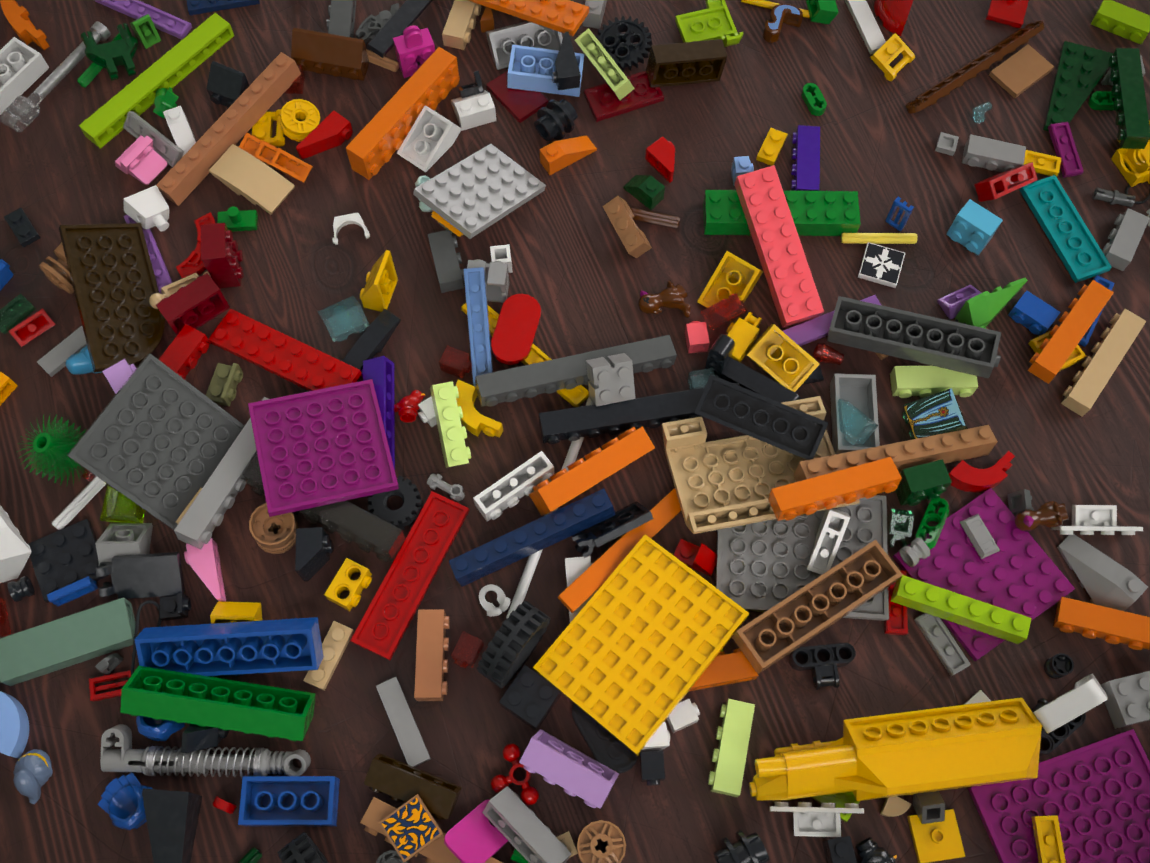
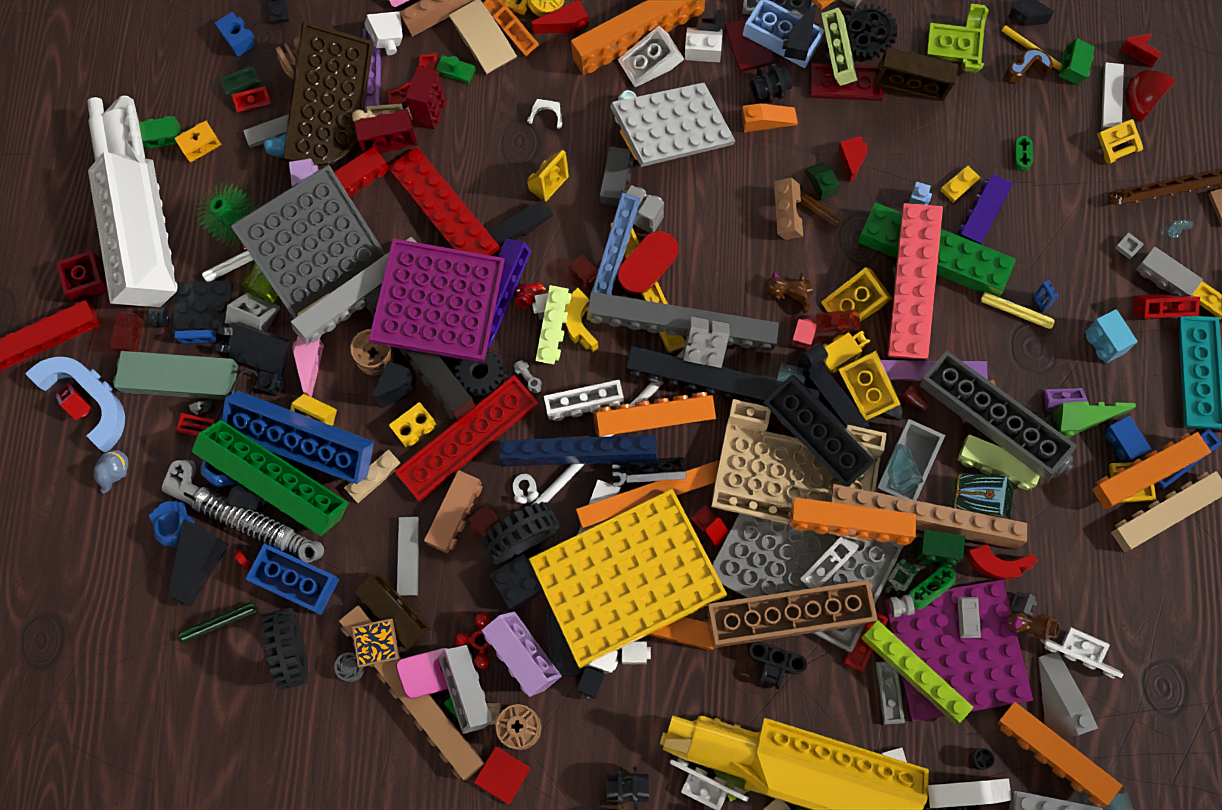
camera: 30 degrees right, 5 degrees up
(224, 384) = (384, 211): olive bracket -> none
(344, 319) = (506, 194): clear light blue slope -> none
(502, 254) = (666, 192): white brick -> none
(732, 747) = (664, 698): yellowish green brick -> none
(881, 265) = (1007, 336): tile -> none

